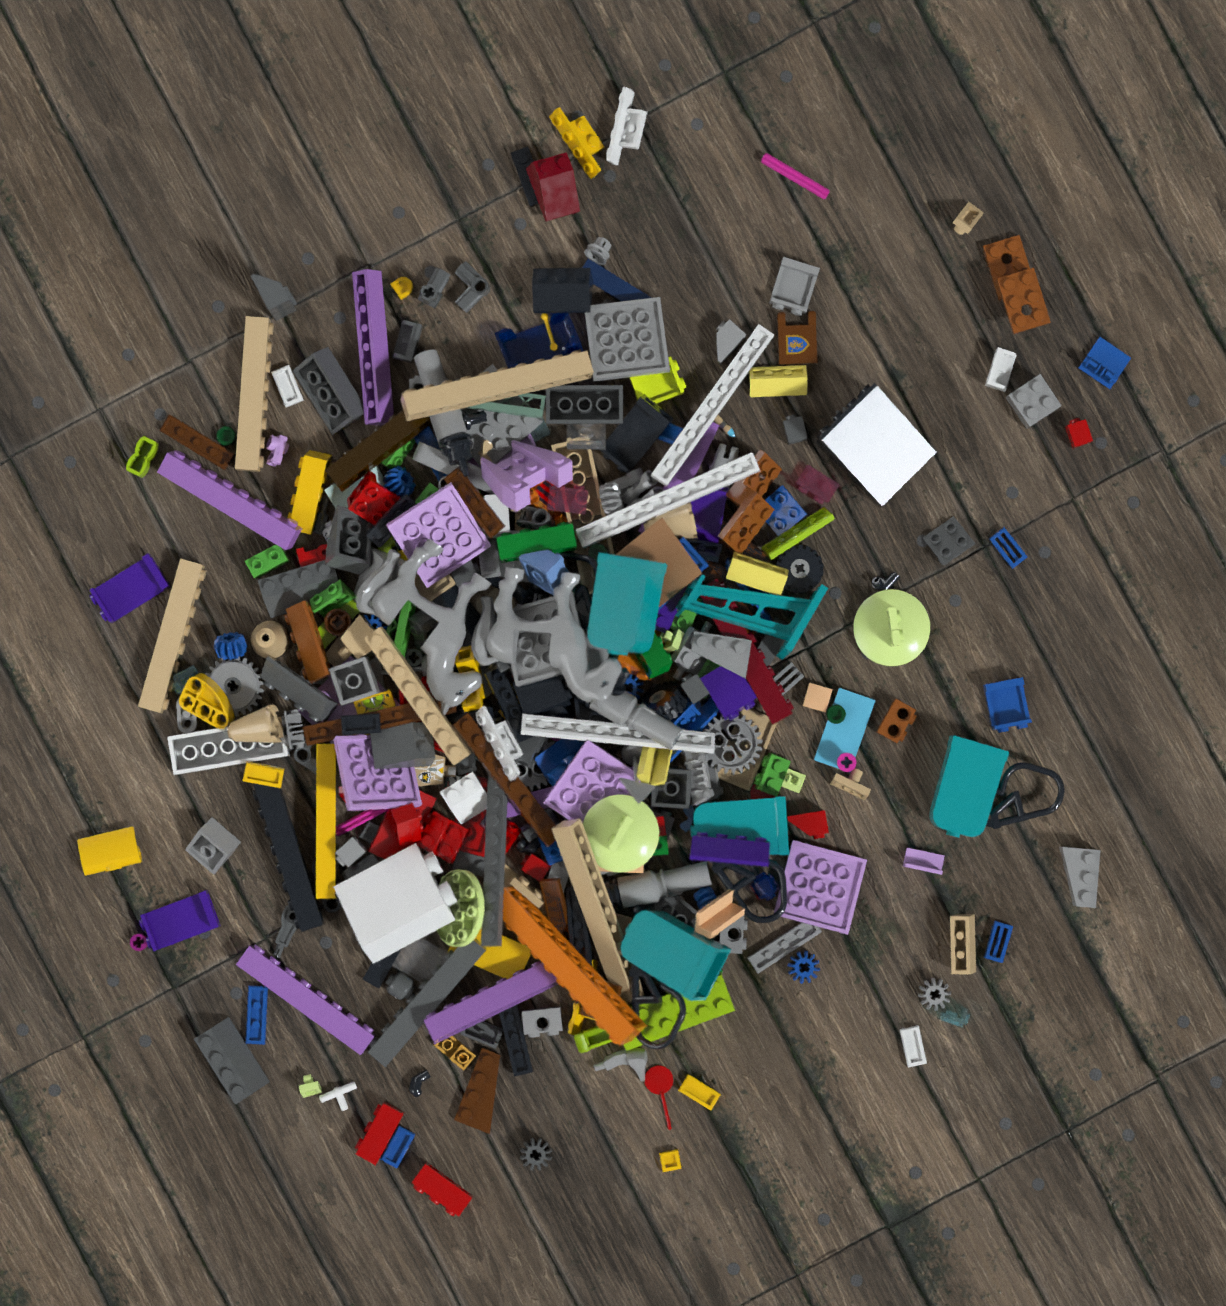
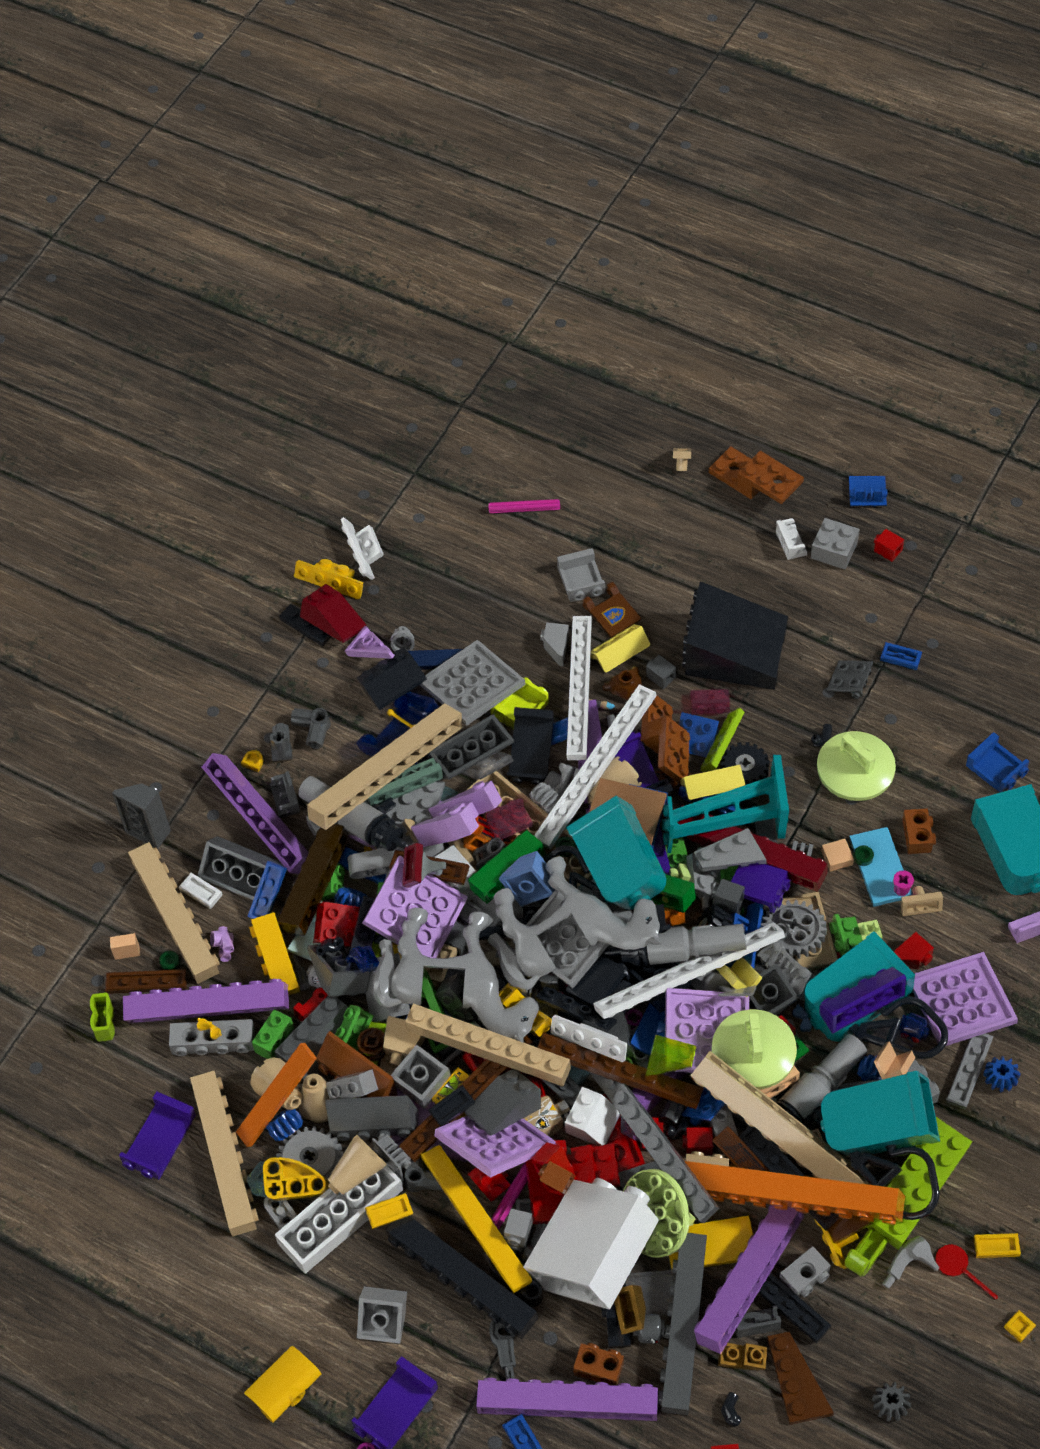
camera: 25 degrees left, 30 degrees down
(195, 511) = (182, 1032): none -> light grey brick
(196, 402) = (124, 946): none -> light nougat piece
(221, 532) = (203, 1024): none -> yellow piece
(232, 627) = (276, 1094): none -> orange tile
(243, 613) = (263, 1077): none -> tan cone
(295, 657) = (352, 1085): none -> light grey brick
(336, 430) = (267, 890): none -> blue tile
(341, 992) = (596, 1370): none -> dark orange brick
(354, 518) = (330, 945): none -> black arm
(371, 553) = (364, 958): none -> clear blue bracket
(393, 968) = (630, 1309): none -> pearl gold slope
(398, 841) = (556, 1177): none -> dark orange slope
(460, 505) = (418, 865): none -> dark red piece
(550, 797) = (669, 1056): none -> clear neon green wing
(564, 239) = (368, 645): none -> lavender wing
(757, 423) = (624, 683): none -> reddish brown rock

